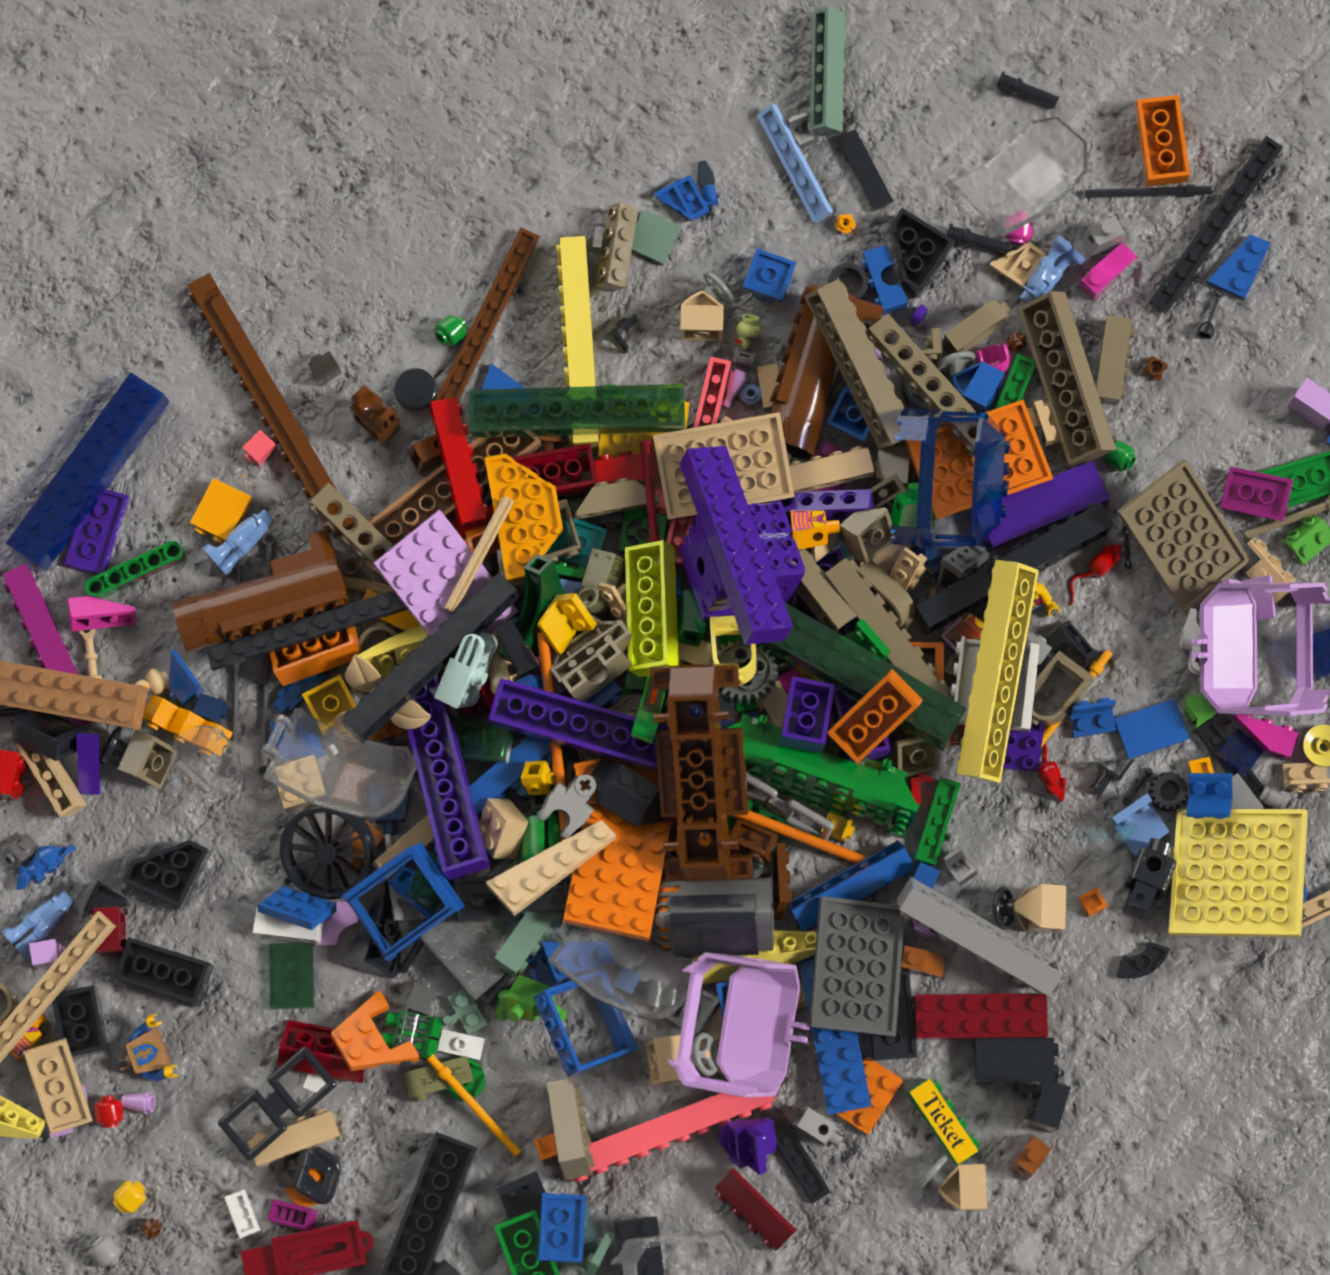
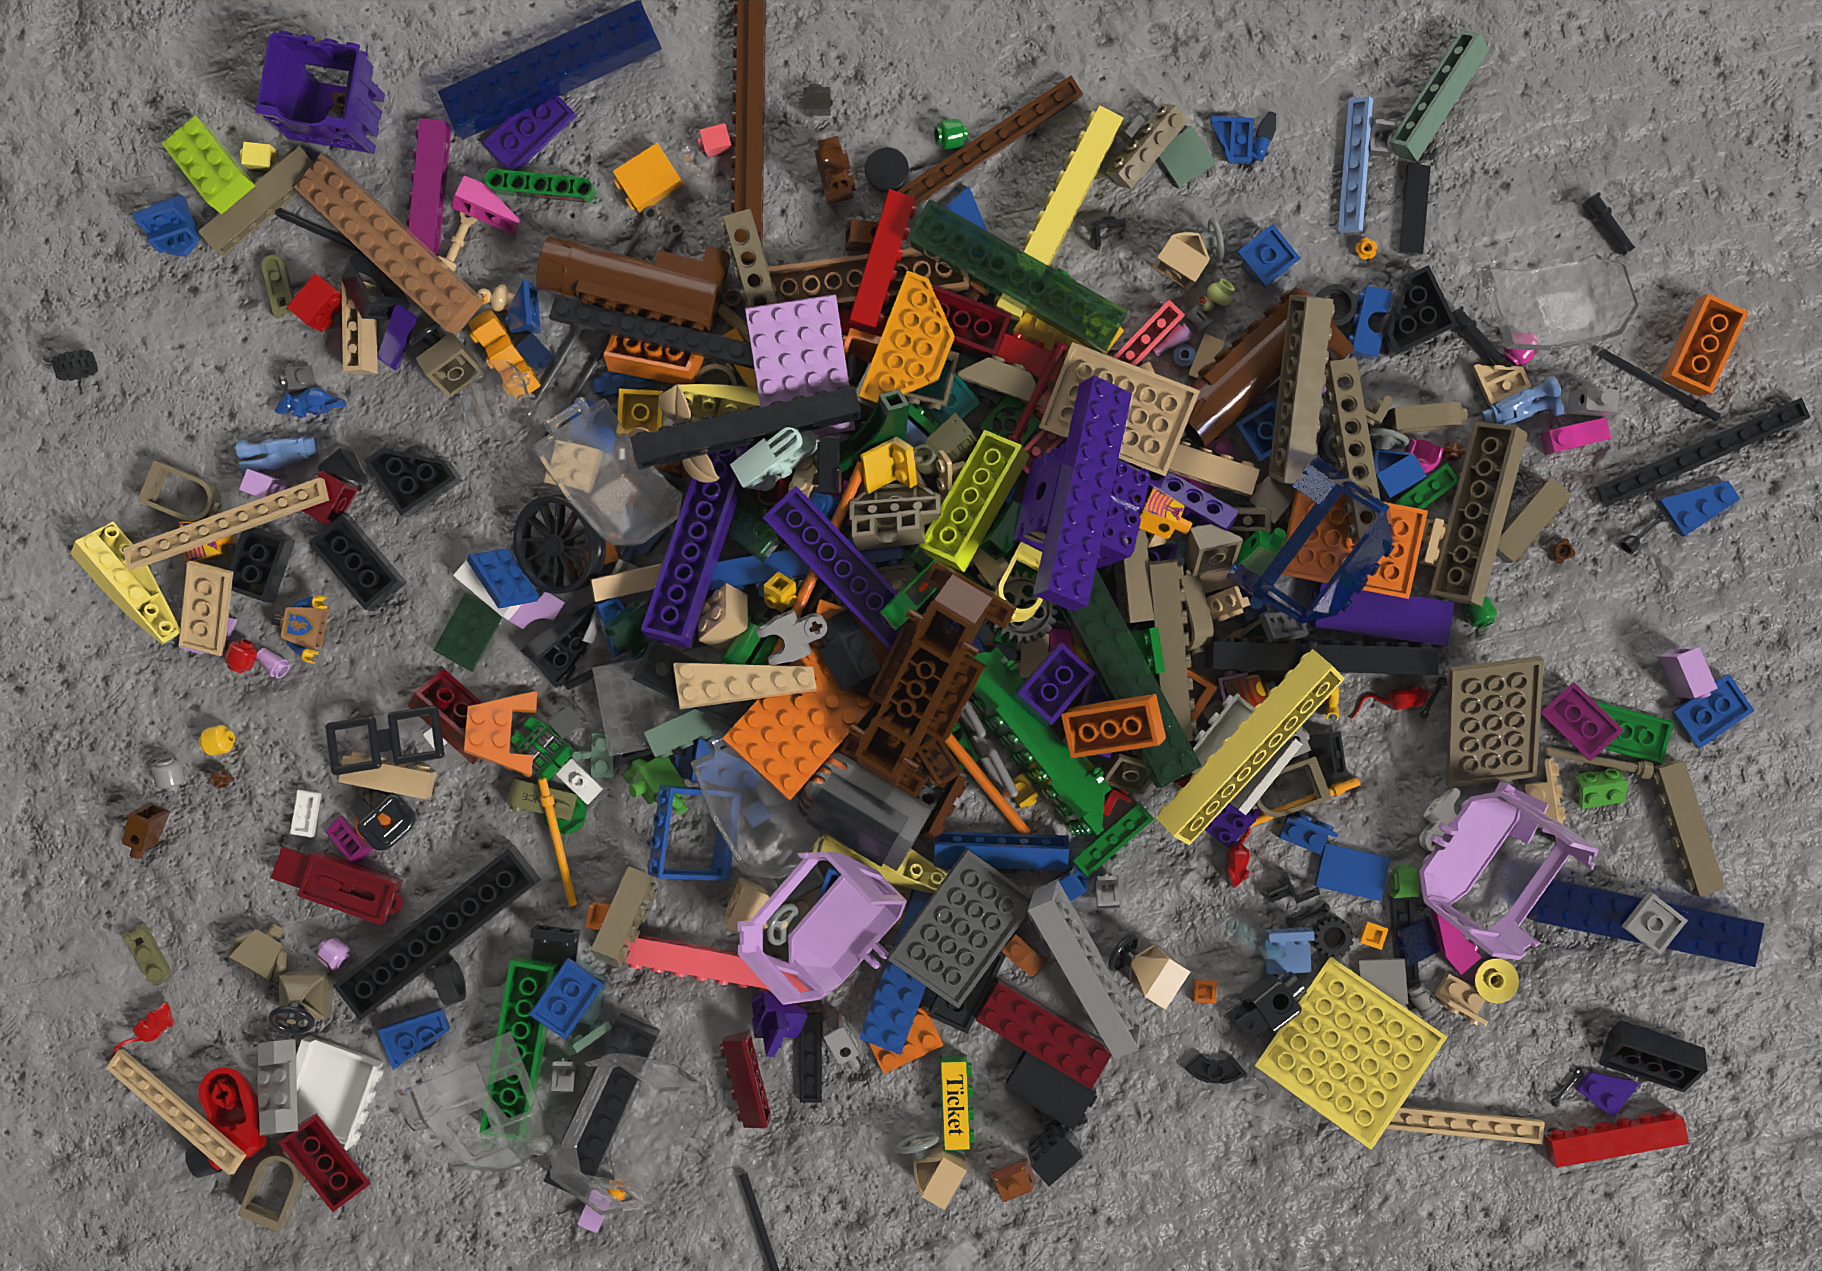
camera: 30 degrees right, 10 degrees up
(239, 540) = (648, 215): medium blue piece -> none
(434, 877) = (631, 622): blue piece -> none
(479, 554) = (847, 357): tan axle -> none
(918, 316) = (1379, 374): dark purple tile -> none
(1210, 795) = (1367, 967): blue bracket -> none

